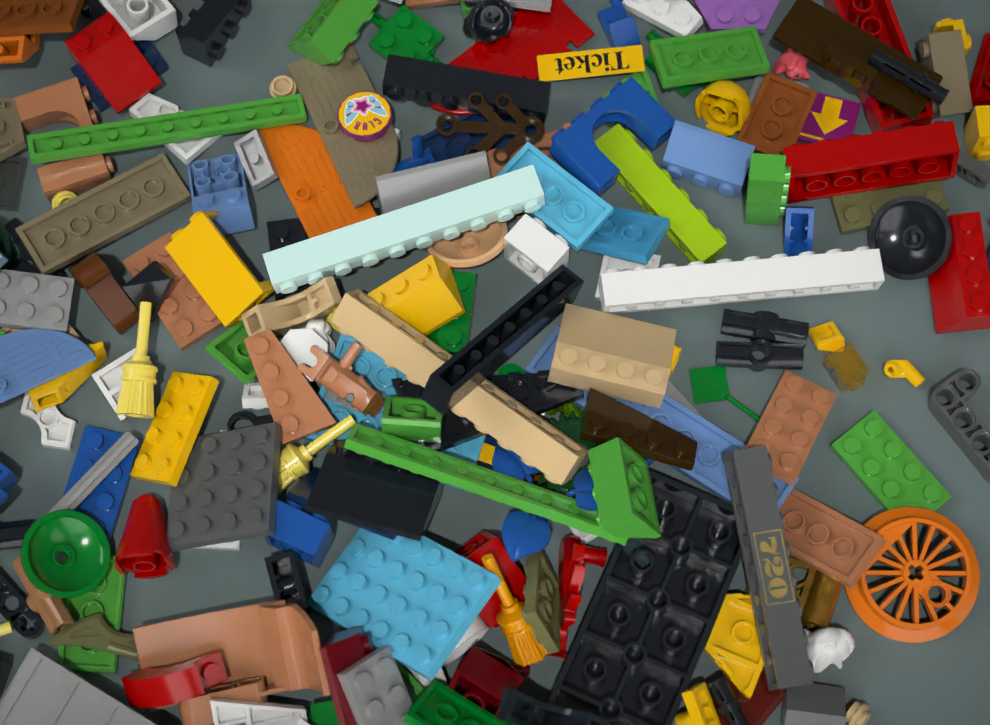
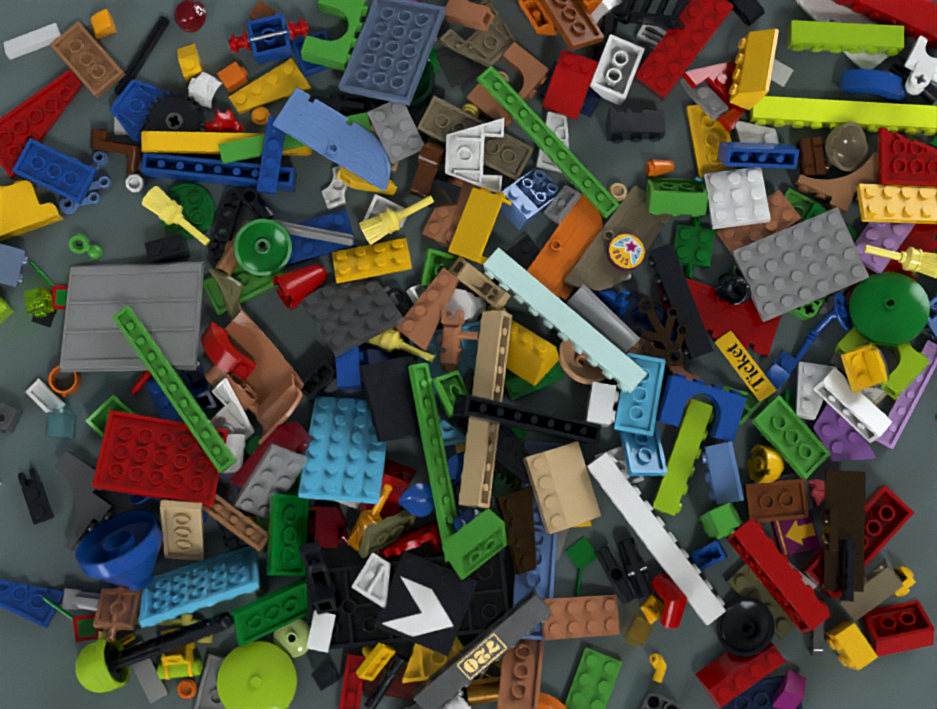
camera: 60 degrees right, 10 degrees up
(118, 232) = (466, 154): none -> white wing
(283, 25) = (658, 167): none -> orange cone
(596, 651) = (374, 580): none -> white wing
(664, 604) = (426, 603): none -> black plate
(829, 299) = (673, 600): none -> red brick

